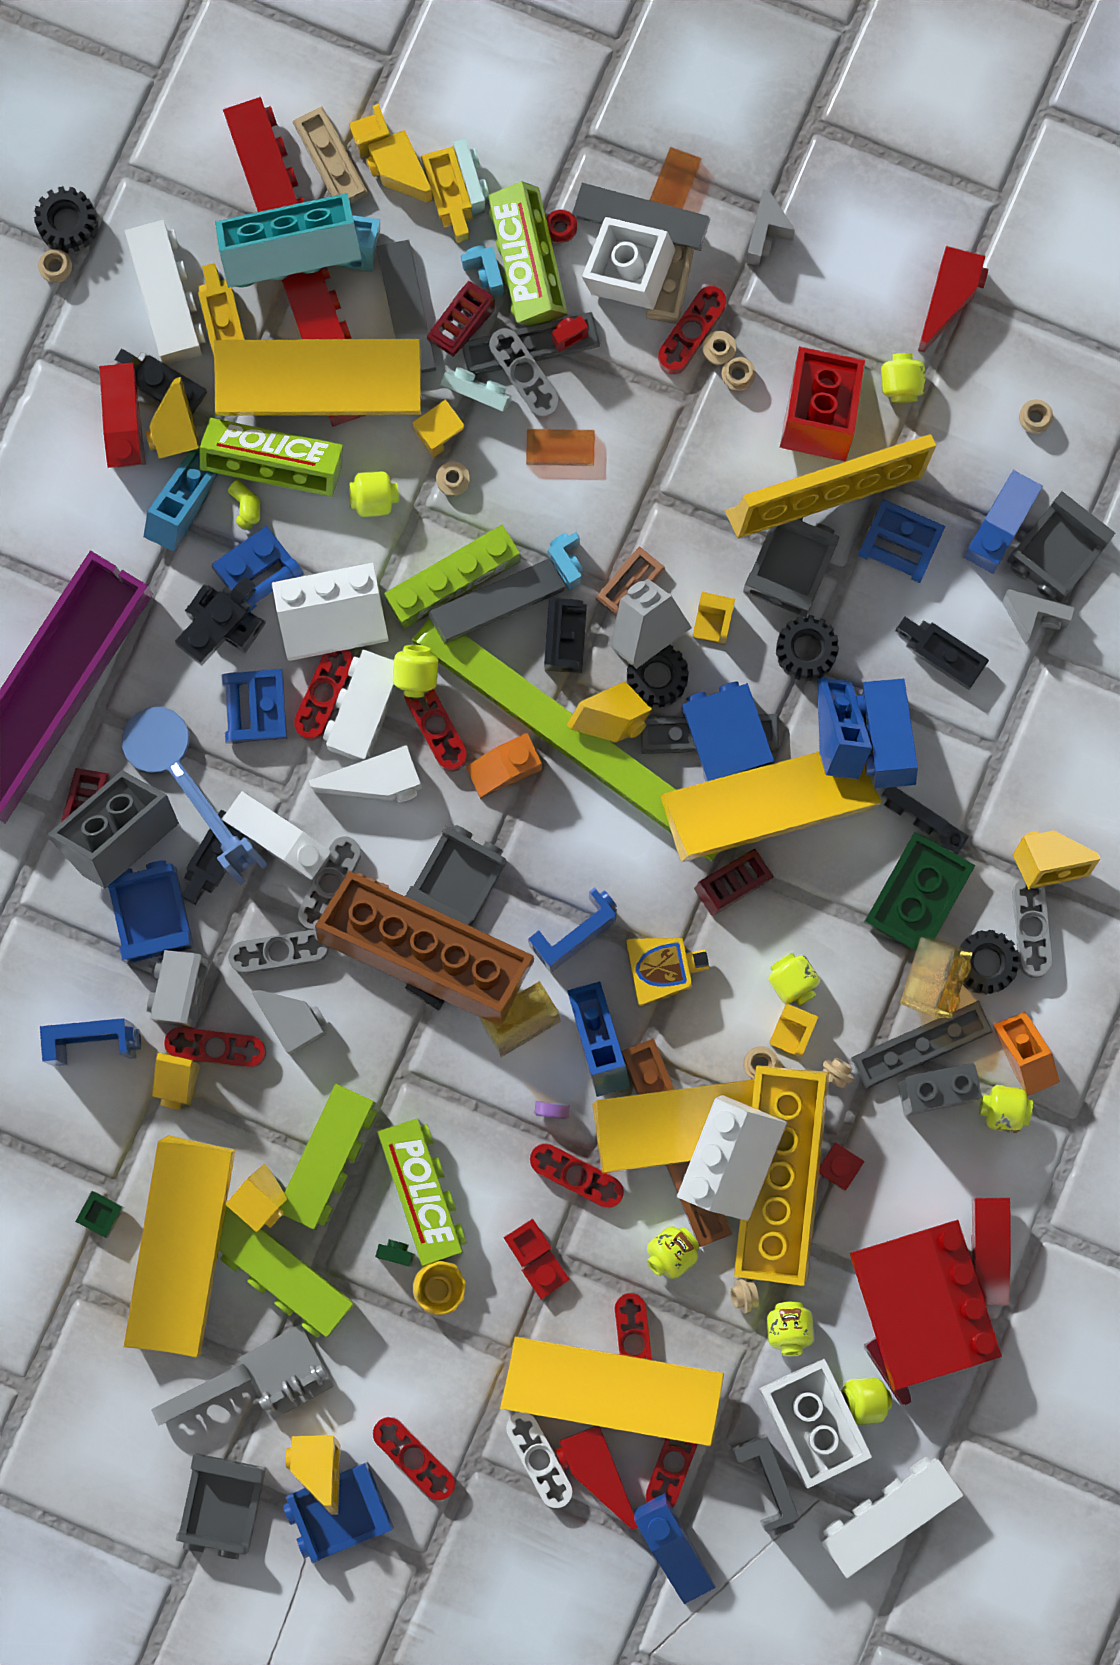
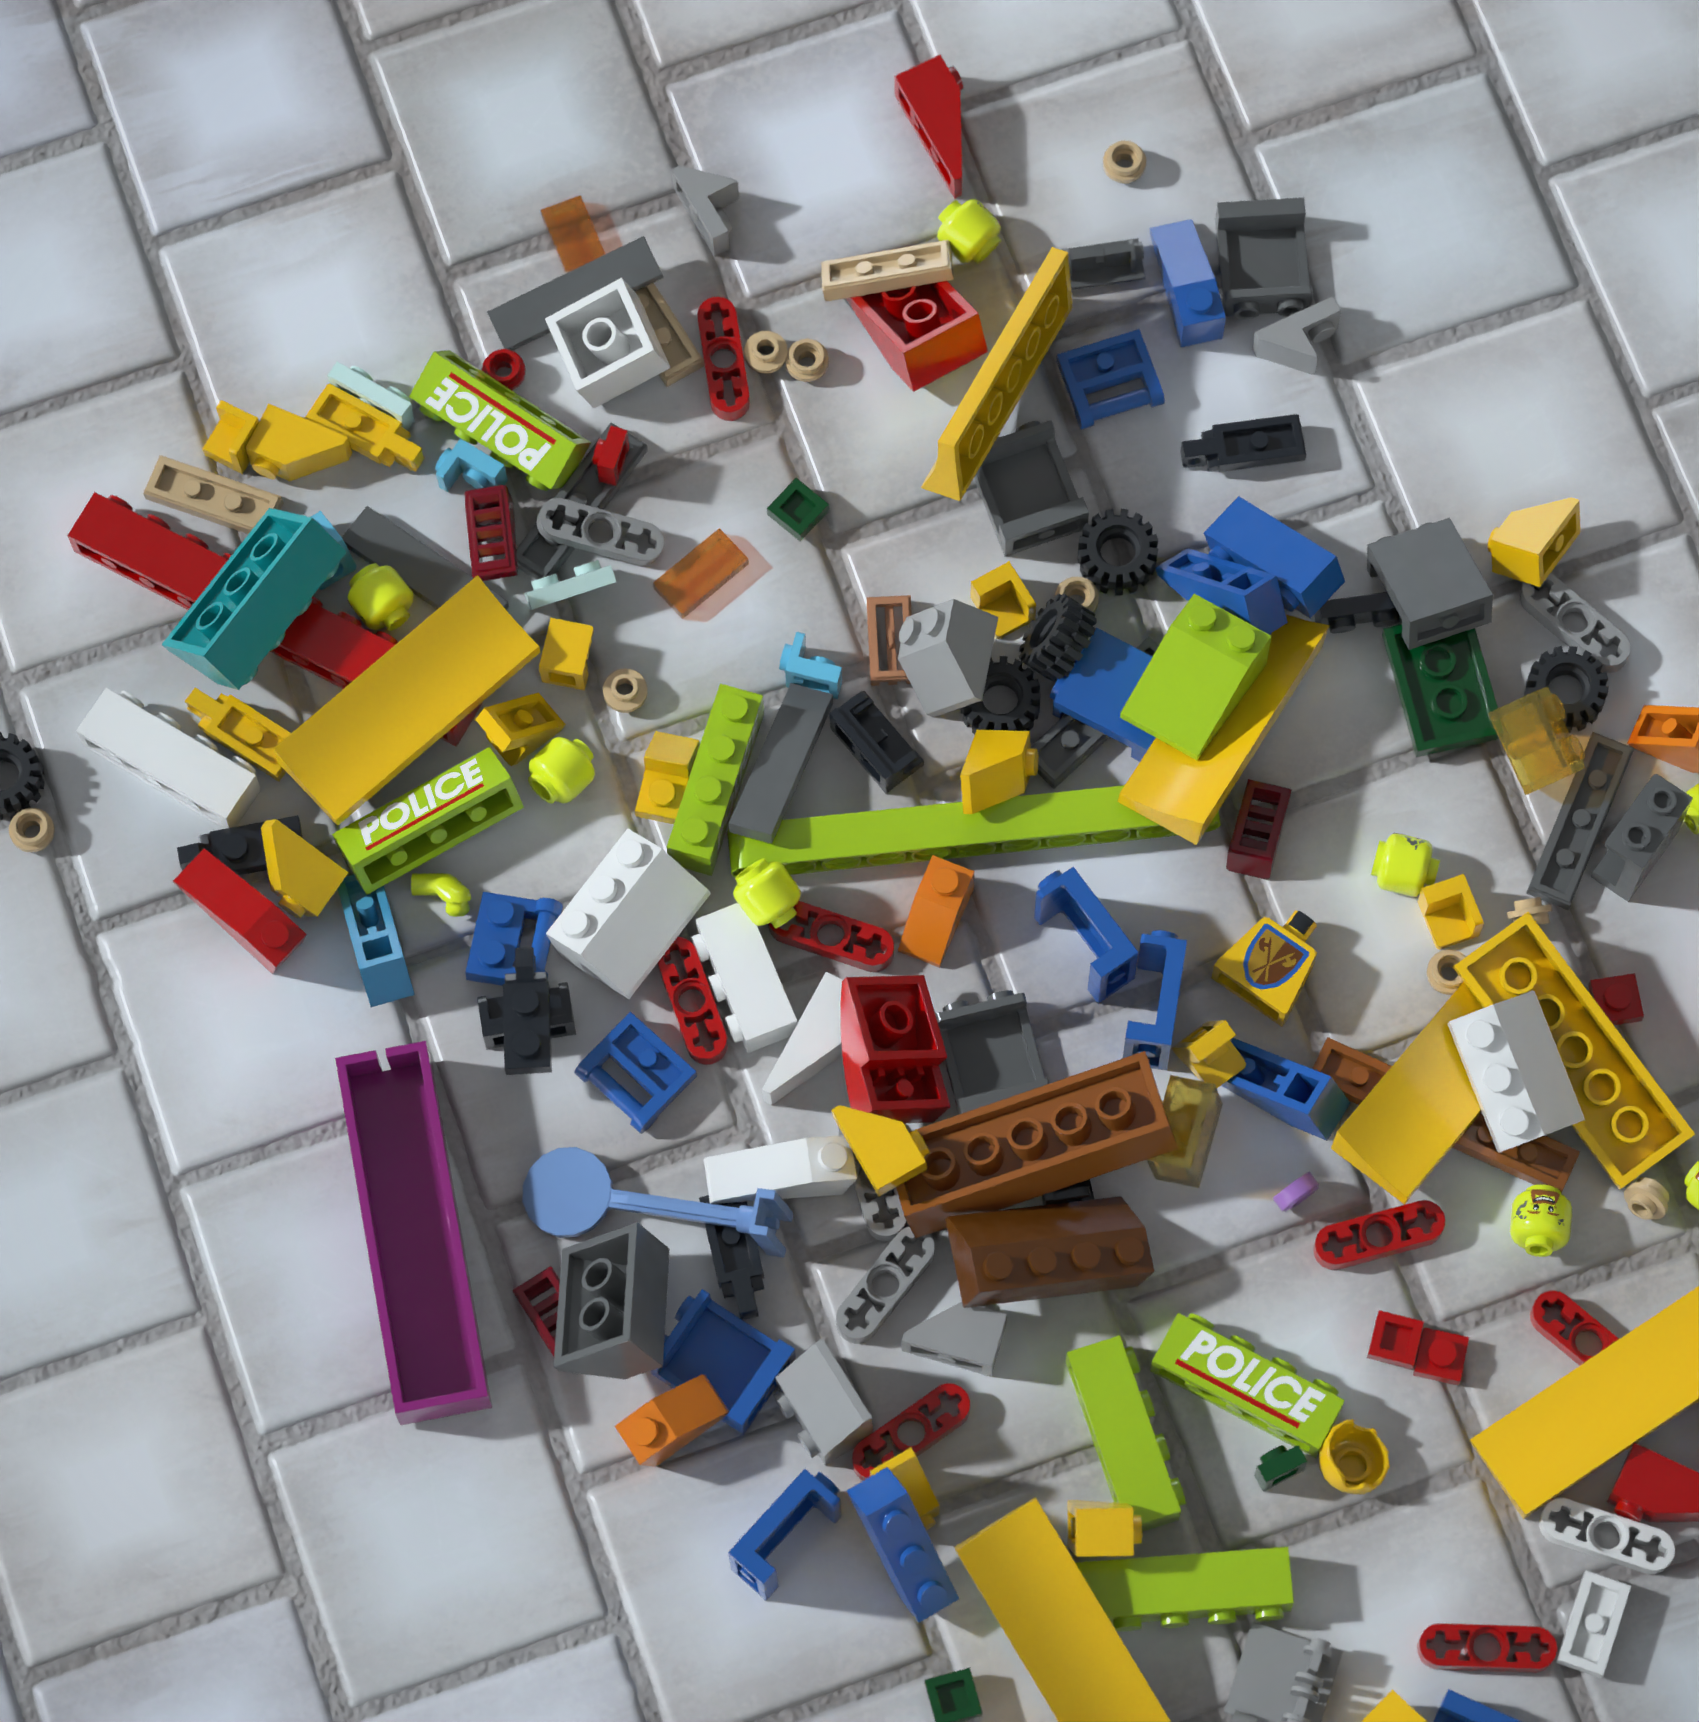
camera: 45 degrees left, 10 degrees down
(88, 921) = (672, 1421): none -> orange slope
(141, 1108) = (903, 1544): none -> blue brick
(335, 875) = (882, 1147): none -> yellow slope
(365, 301) = (380, 597): none -> neon yellow head
(373, 446) = (519, 726): none -> yellow slope
(380, 1015) = (1048, 1251): none -> reddish brown slope
(401, 823) = (892, 1048): none -> red slope
(432, 546) = (666, 775): none -> yellow slope
(483, 1501) = (1593, 1624): none -> white plate
(573, 890) = (1114, 951): none -> blue panel
(577, 987) = (1211, 1053): none -> yellow slope
(649, 459) = (798, 509): none -> dark green plate
(720, 668) = (1057, 637): none -> black tyre
(762, 644) = (1082, 587): none -> tan plate
(771, 765) = (1197, 676): none -> lime slope
(832, 361) = (887, 270): none -> tan tile
(962, 466) = (1106, 263): none -> dark grey hinge
(966, 829) = (1431, 582): none -> dark grey panel

